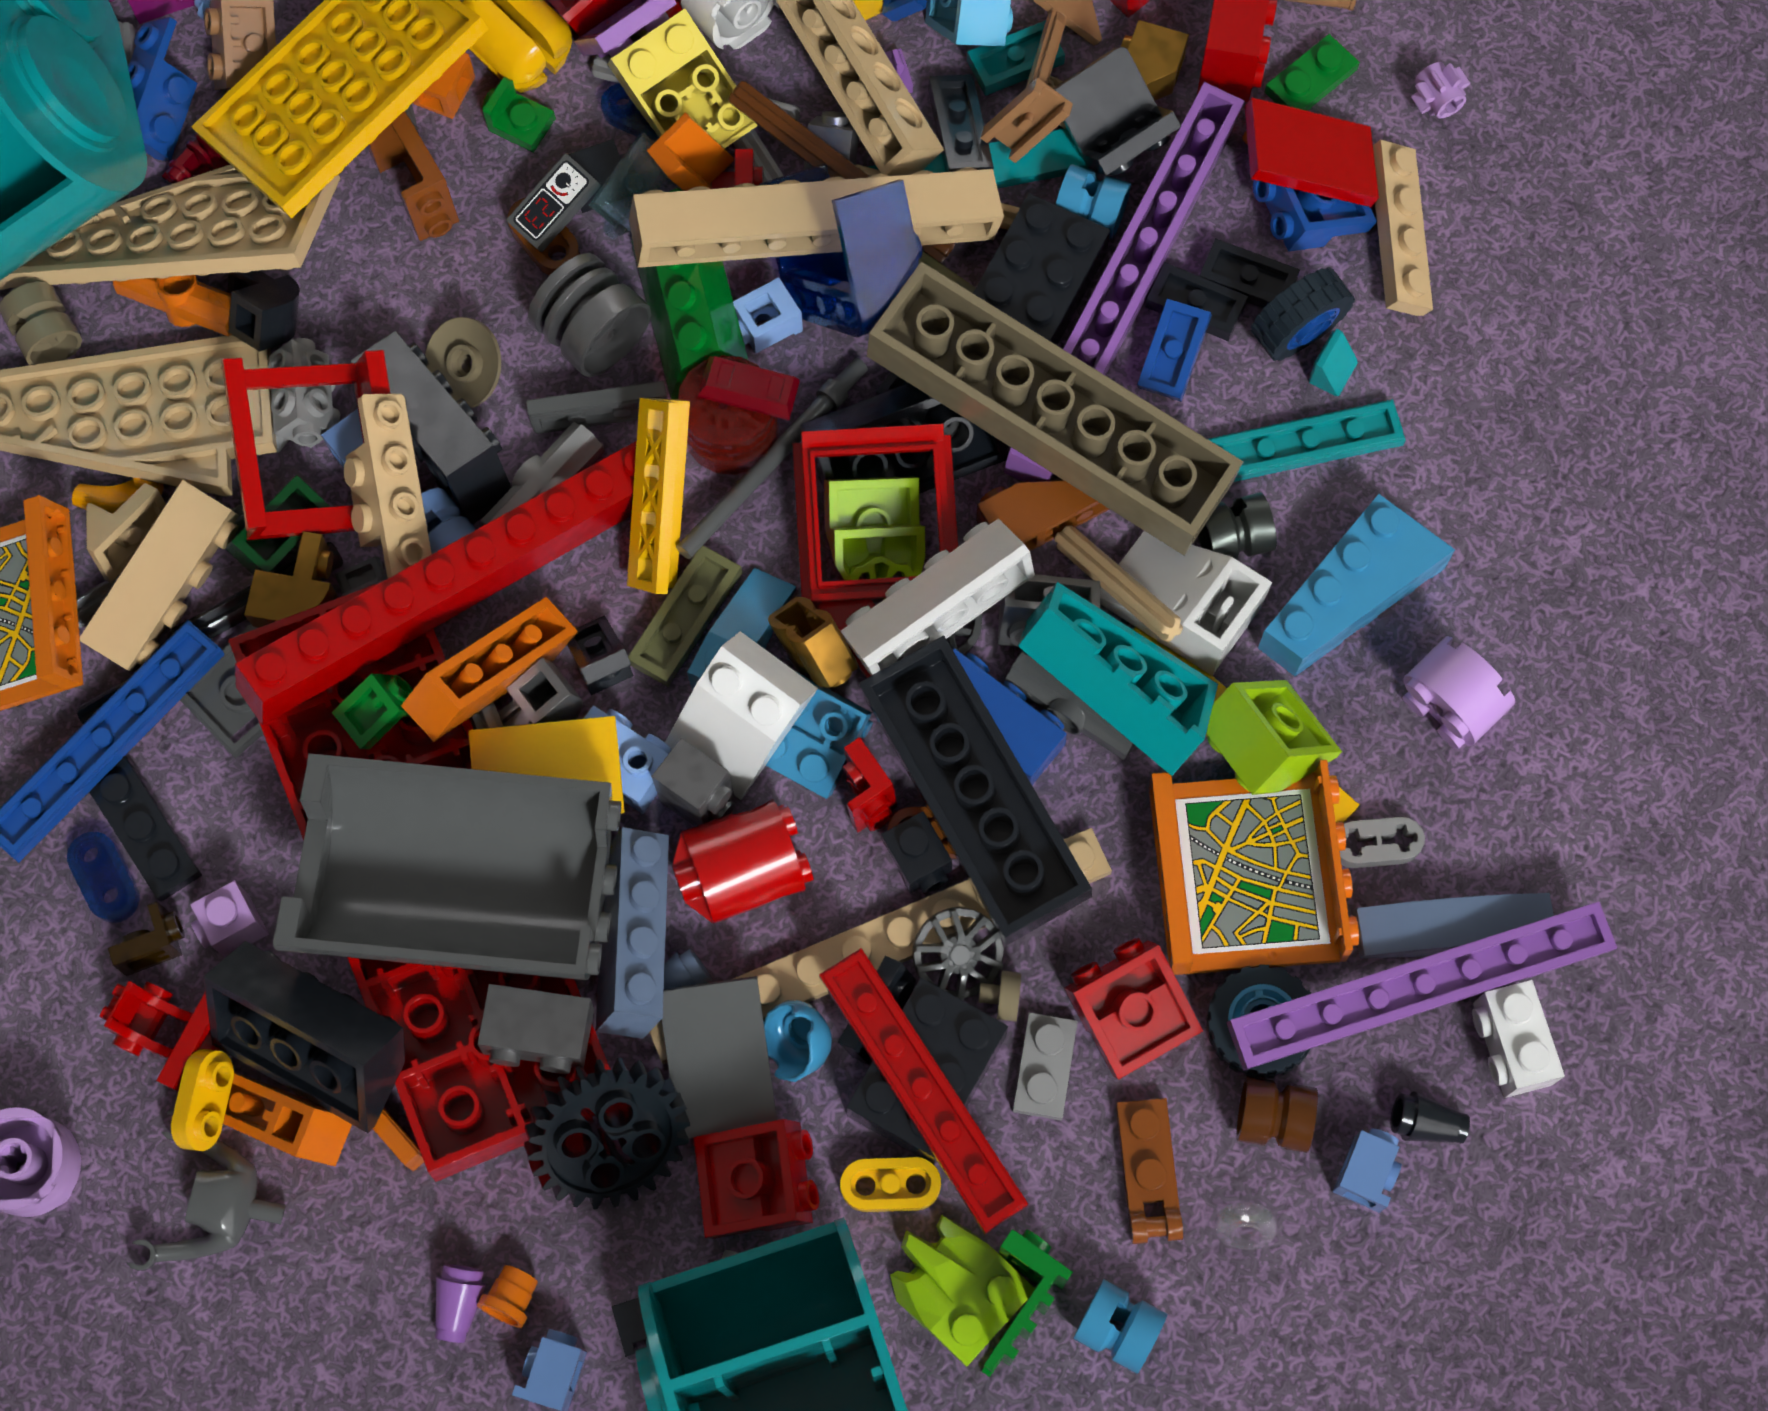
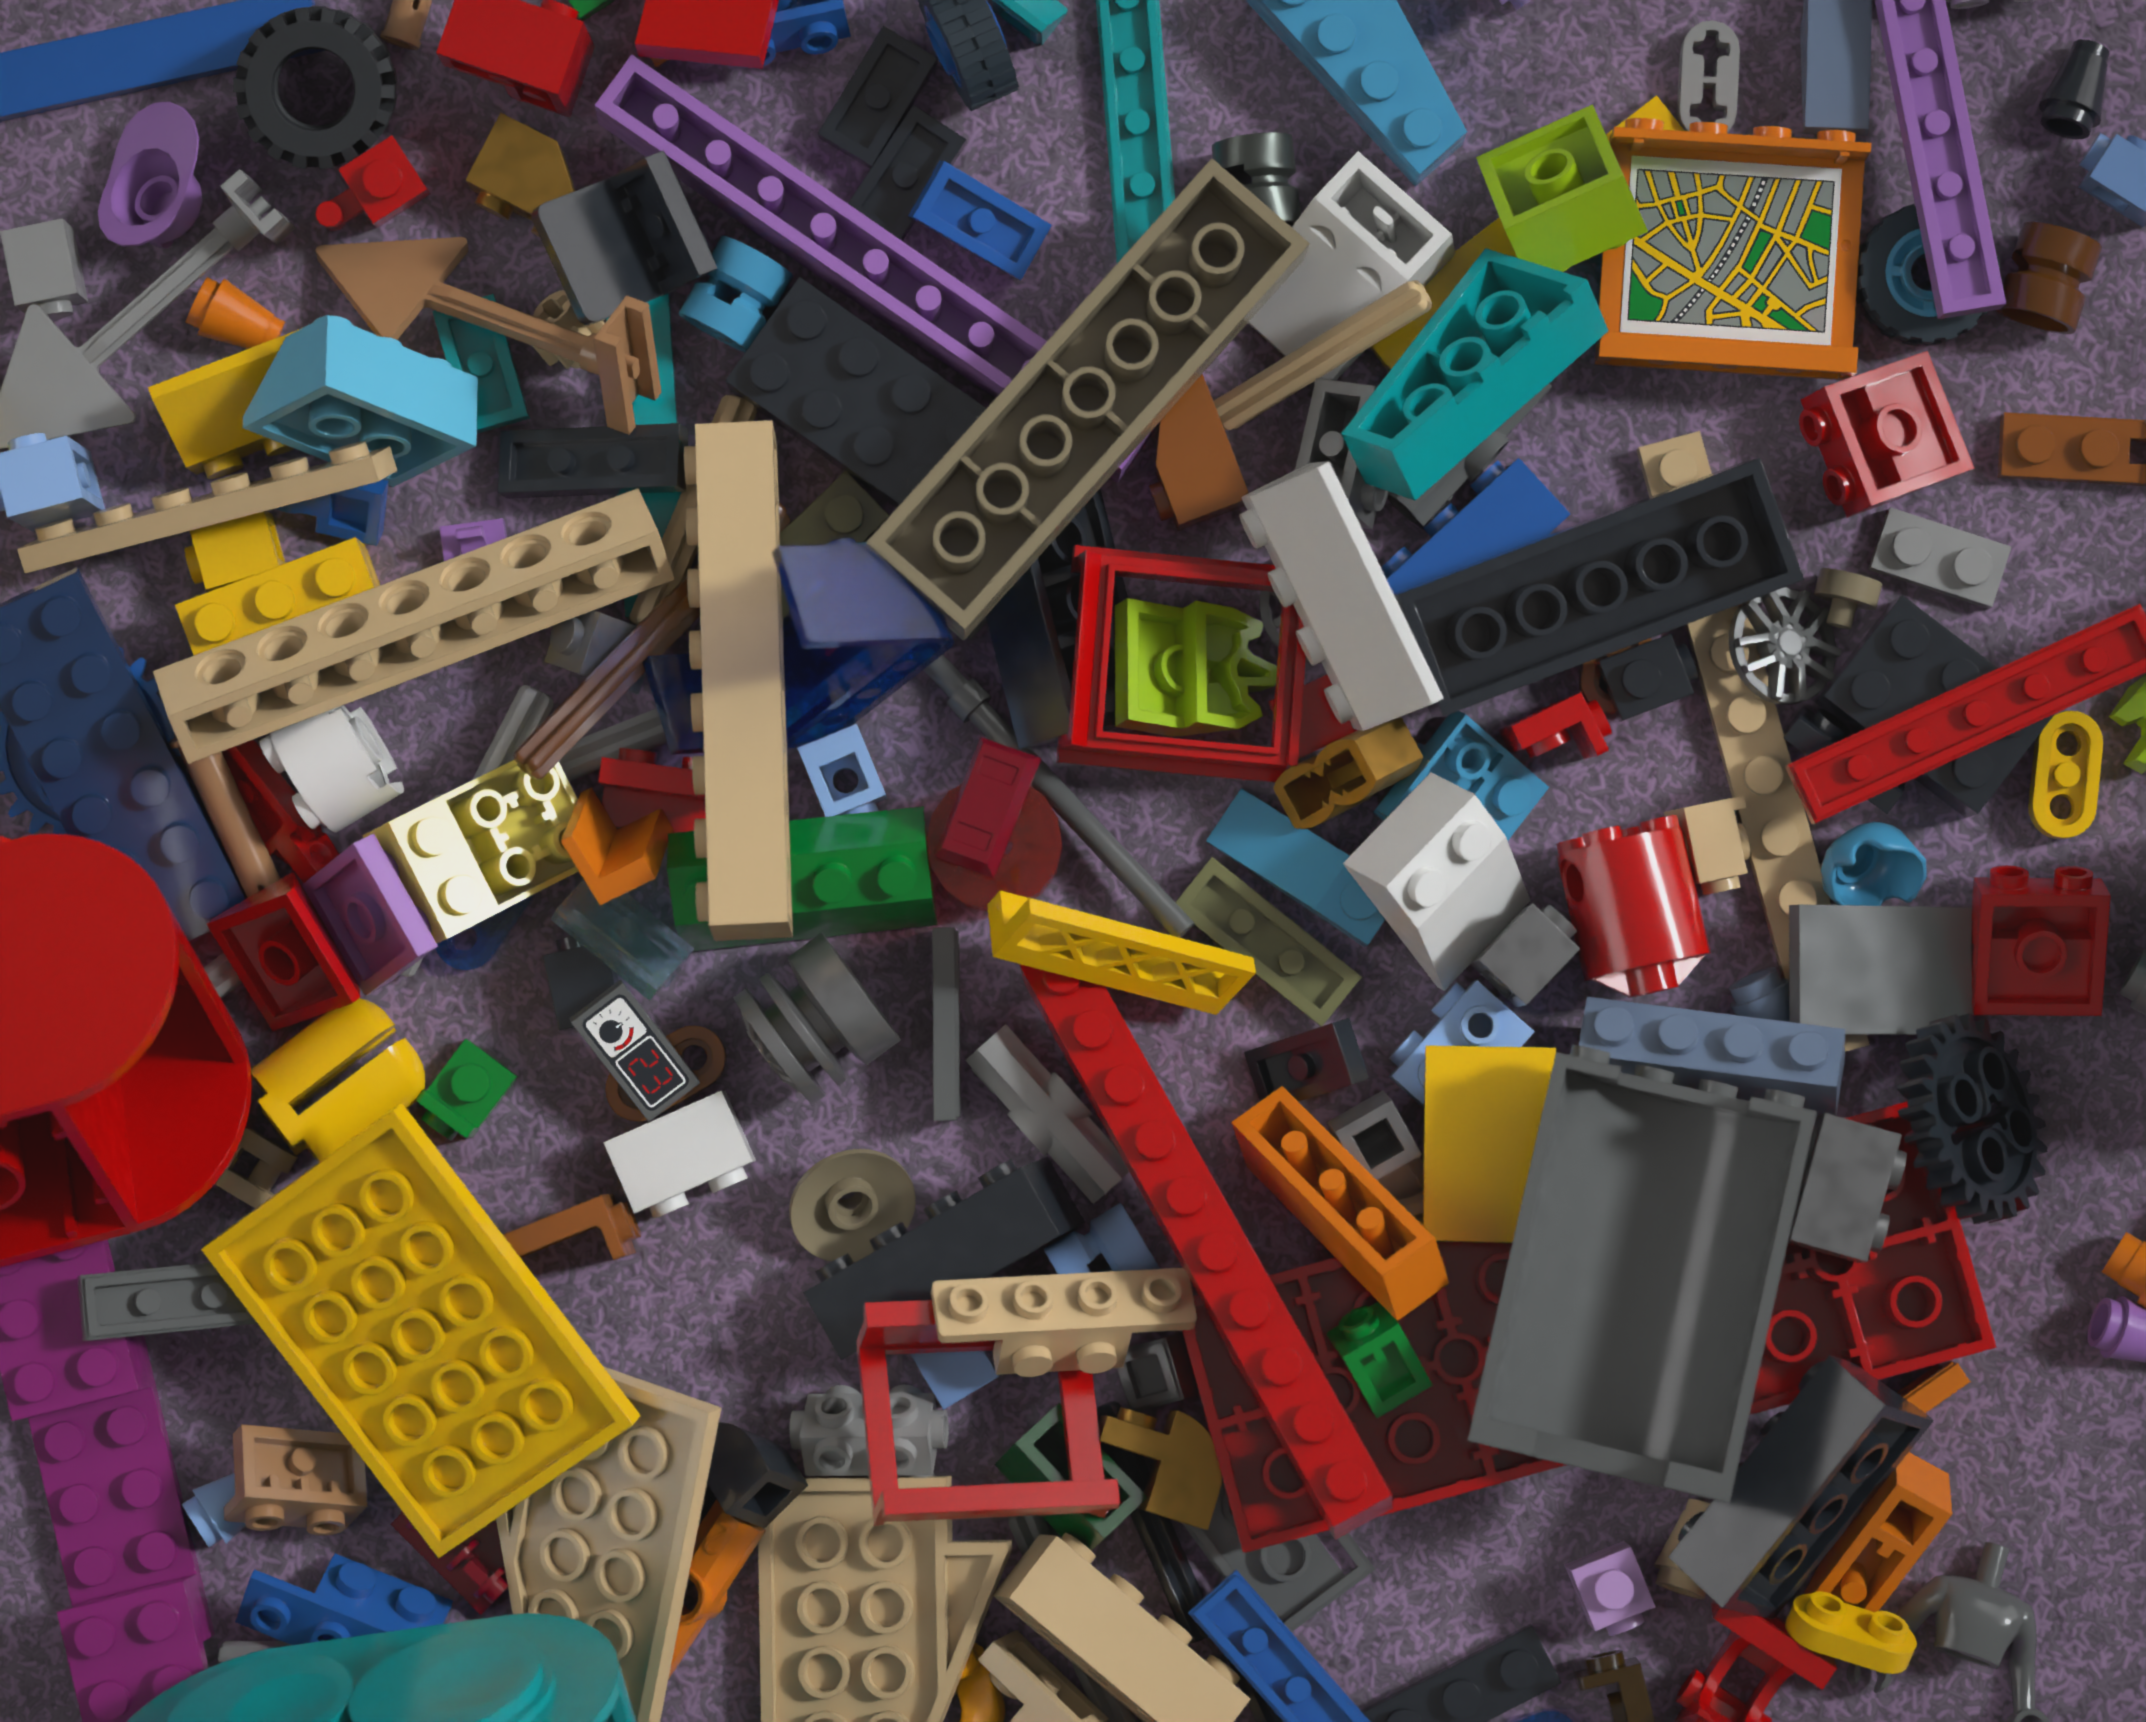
camera: 80 degrees left, 15 degrees up
(488, 250) = (680, 1154): none -> white brick
(797, 918) = (1715, 843): none -> tan brick

